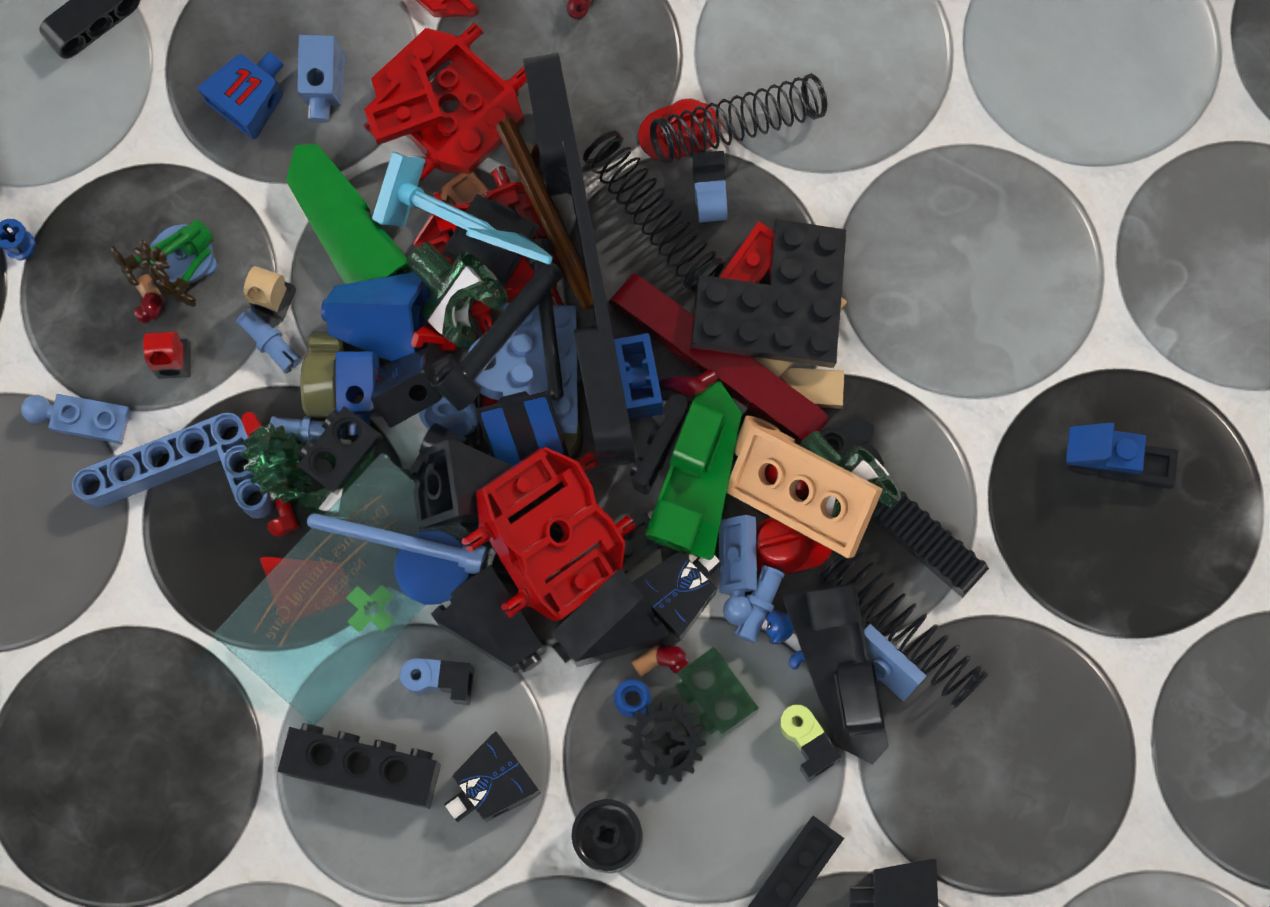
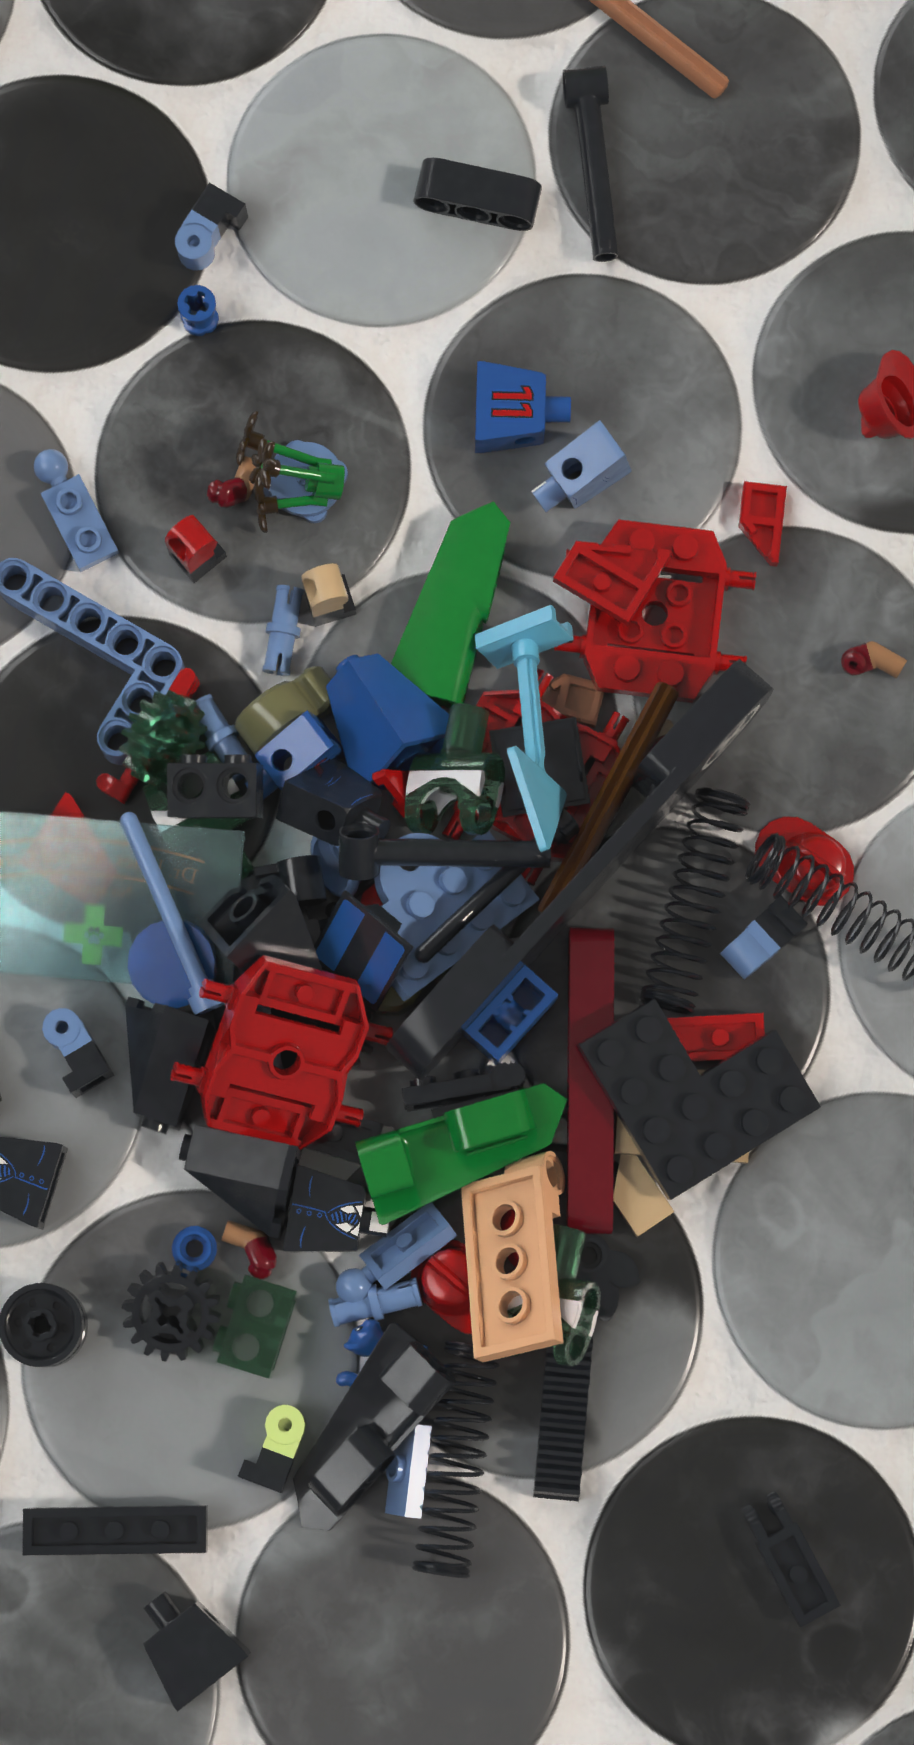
camera: 45 degrees right, 5 degrees up
(689, 385) = (539, 1072): dark red bar -> none
(1105, 449) = (784, 1532): blue slope -> none

